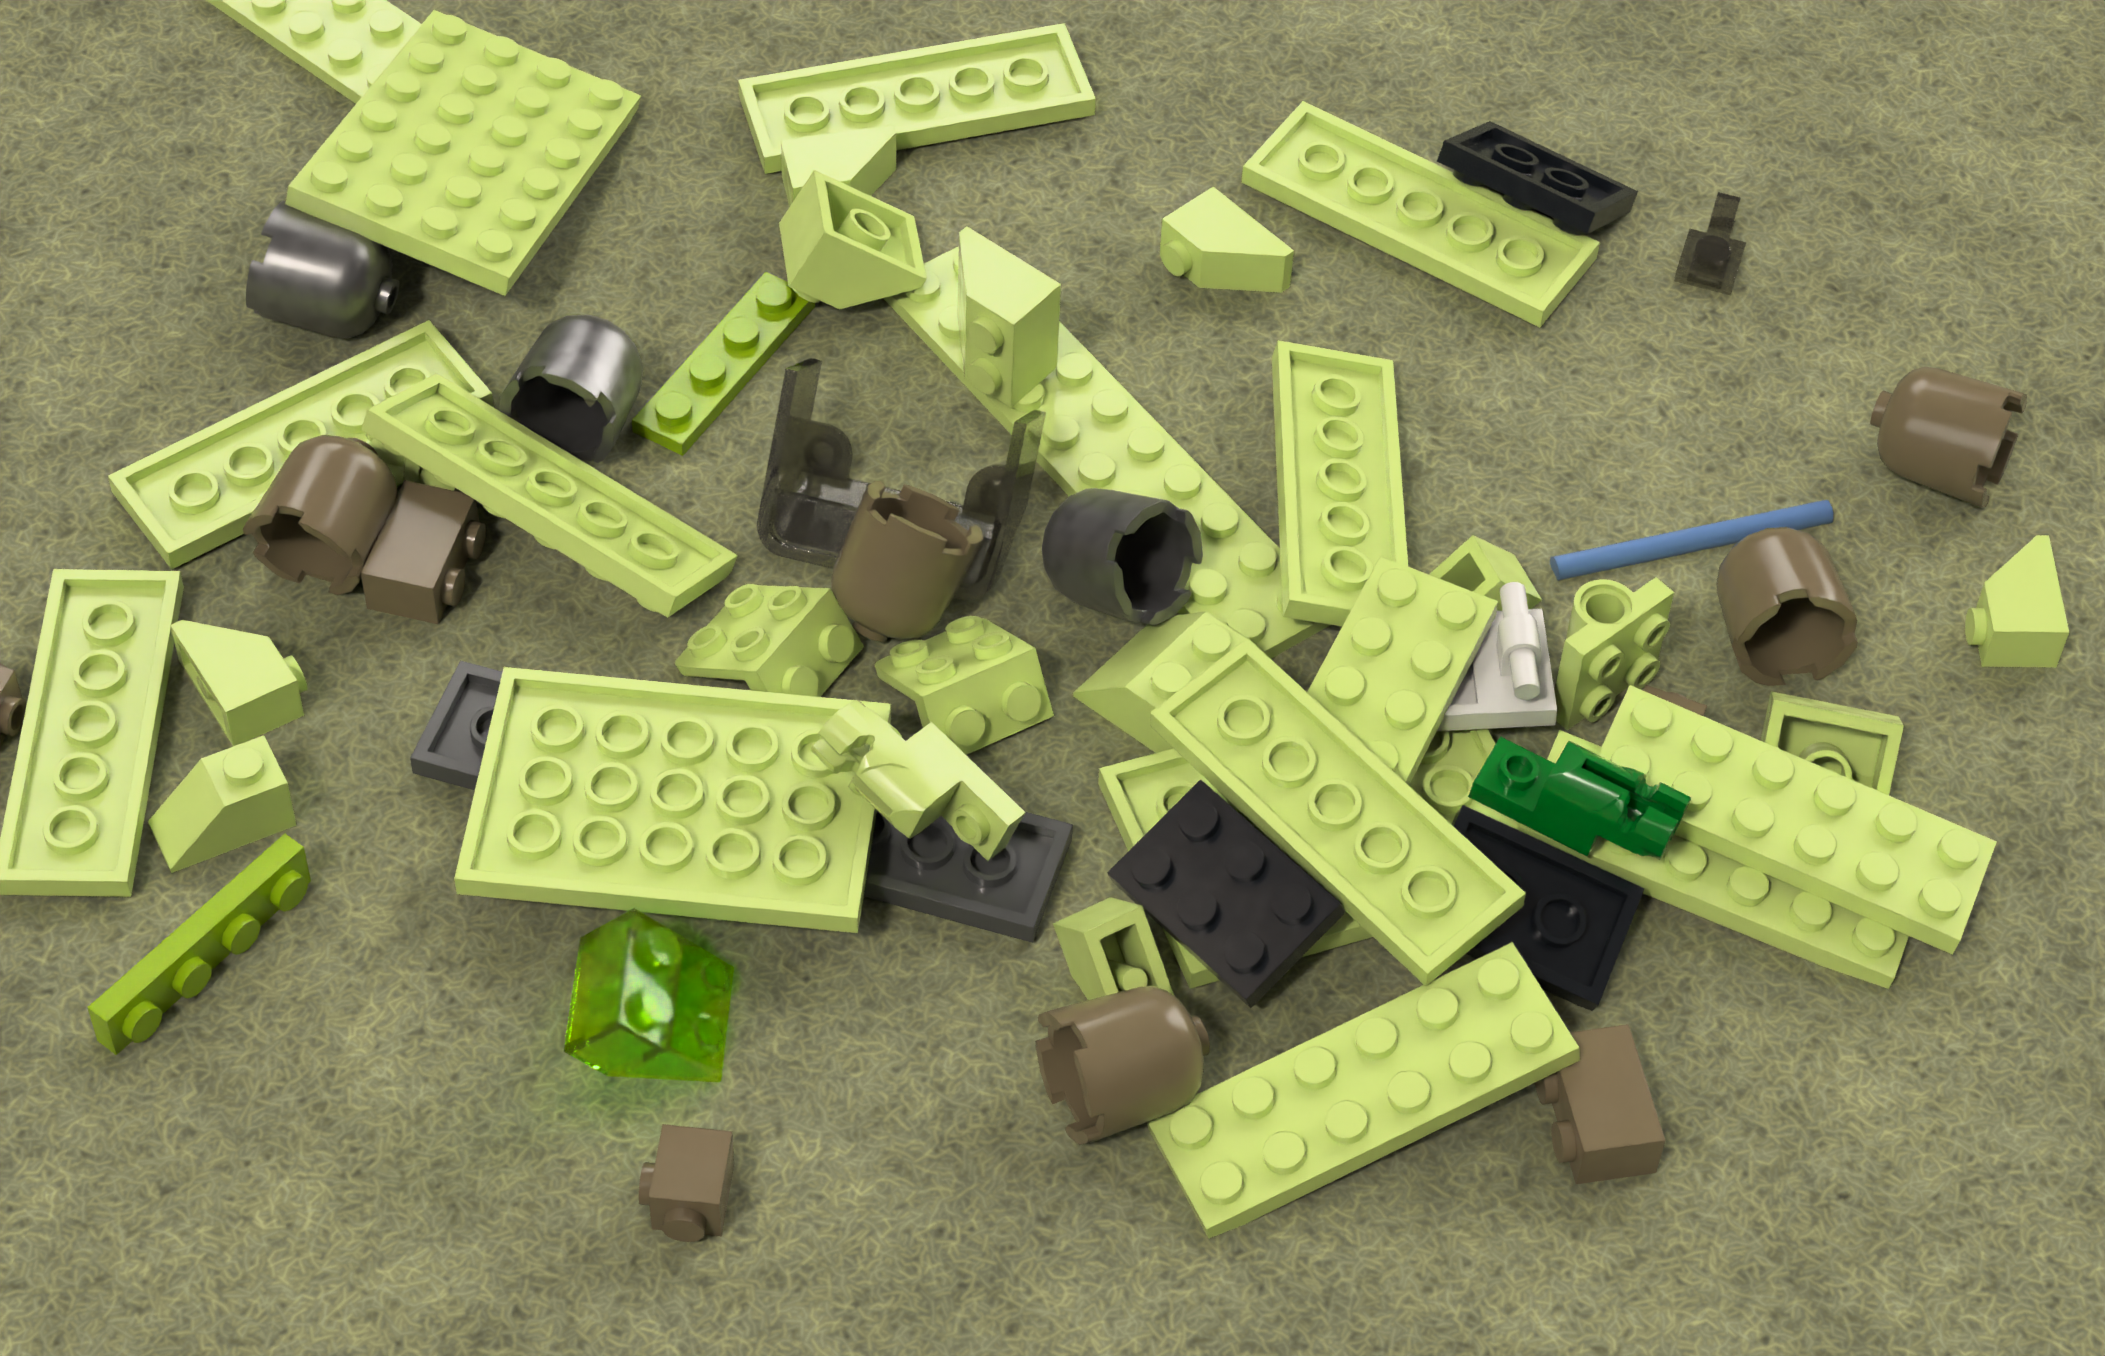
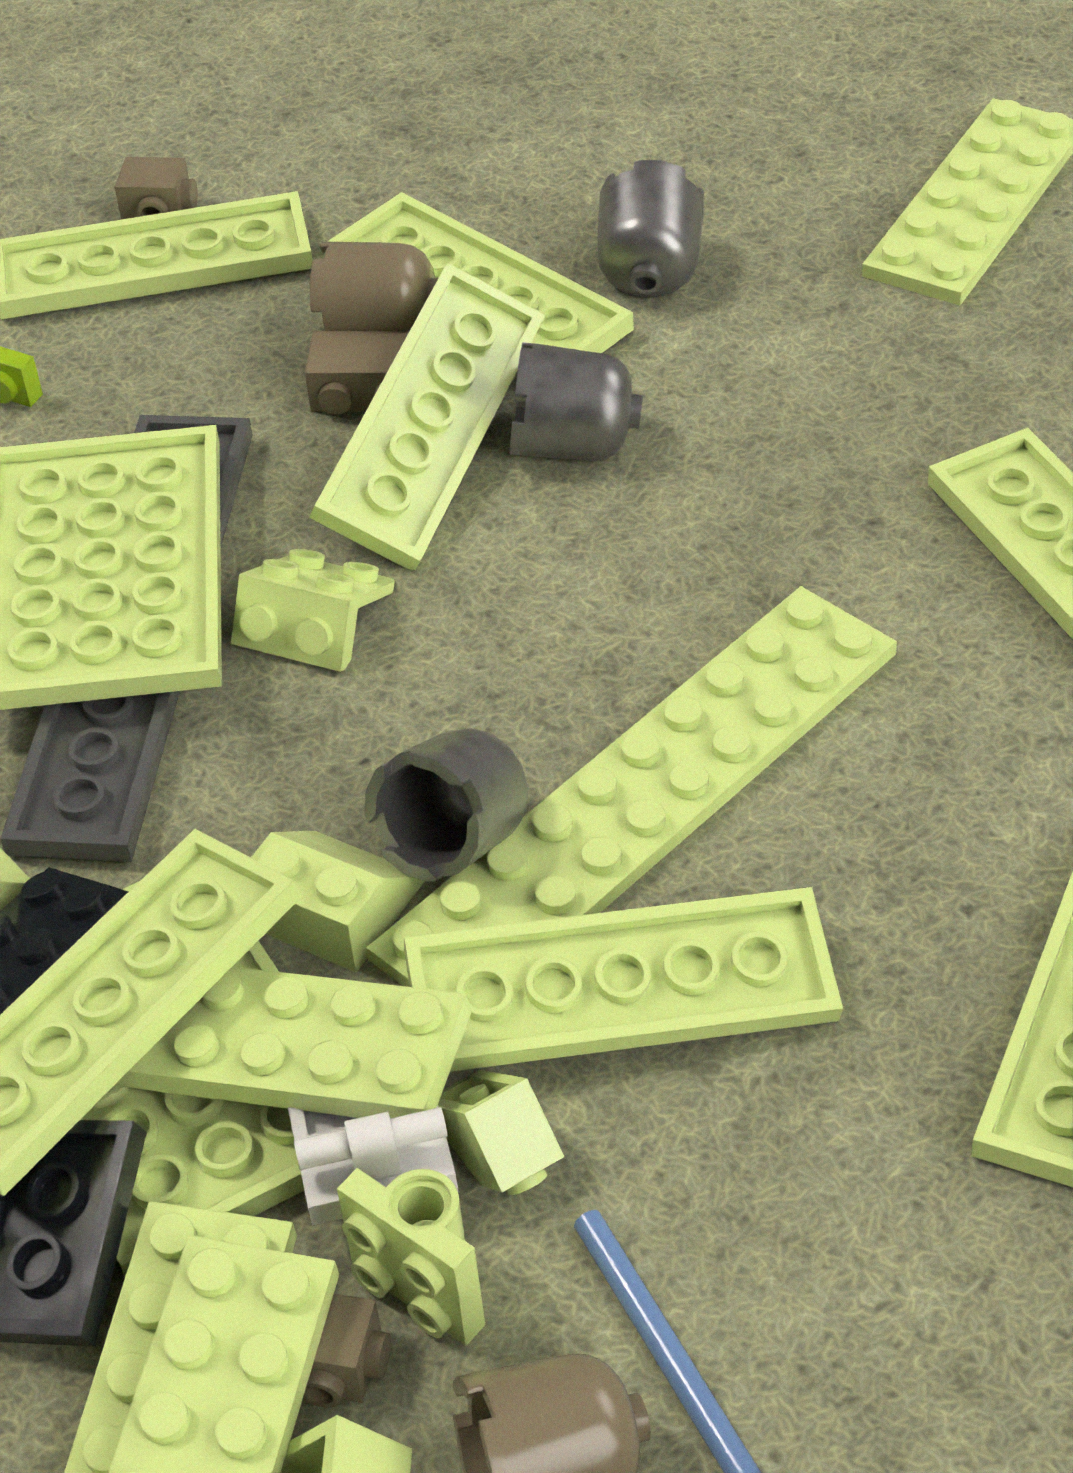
camera: 85 degrees right, 5 degrees down
(223, 805) = (84, 338): yellowish green slope -> none
(240, 678) = (204, 309): yellowish green slope -> none
(465, 152) = (826, 272): yellowish green plate -> none
(722, 365) = (666, 508): lime plate -> none
(813, 501) = (493, 619): clear smoke windscreen -> none
(848, 245) = (822, 537): yellowish green slope -> none
(853, 157) = (932, 519): yellowish green slope -> none
(902, 562) = (394, 636): dark tan cylinder -> none
(917, 778) = (110, 690): yellowish green plate -> none
(970, 682) = (282, 735): yellowish green bracket -> none
(1004, 319) = (714, 634): yellowish green slope -> none
(1223, 247) = (961, 827): yellowish green slope -> none
(1580, 799) = (146, 1226): green plate -> none

